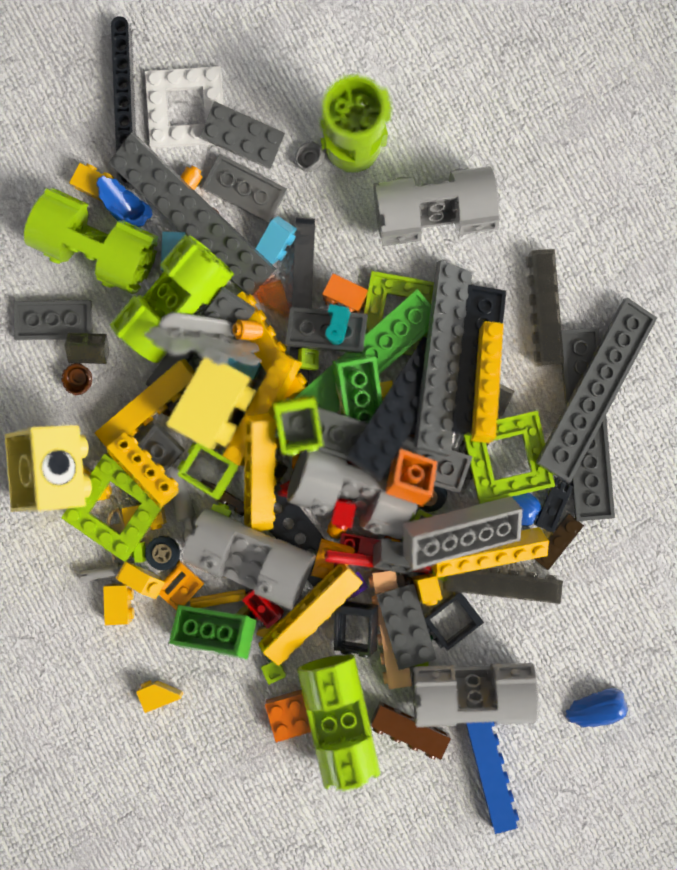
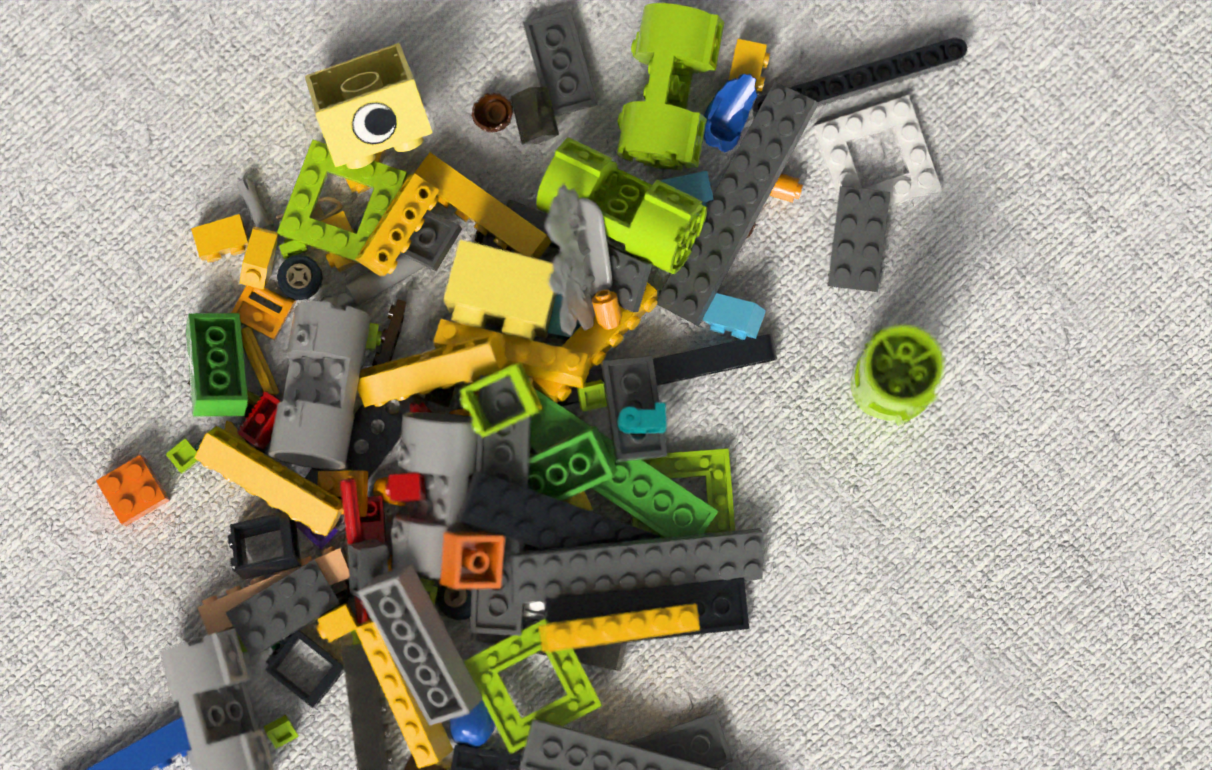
camera: 75 degrees right, 5 degrees down
(157, 694) = (118, 316): yellow slope -> none
(223, 483) = (408, 330): lime window -> none
(244, 188) = (792, 259): dark grey plate -> none
(274, 298) = (661, 333): clear orange slope -> none
(309, 156) = (854, 331): light grey hair -> none
(339, 722) = (142, 552): lime cylinder -> none
(344, 293) = (686, 422): orange brick -> none
(403, 728) = (150, 637): reddish brown brick -> none
(465, 200) = (815, 468): light grey cylinder -> none
(493, 649) = (281, 731): none -> lime plate
(546, 308) = (739, 686): clear smoke brick -> none

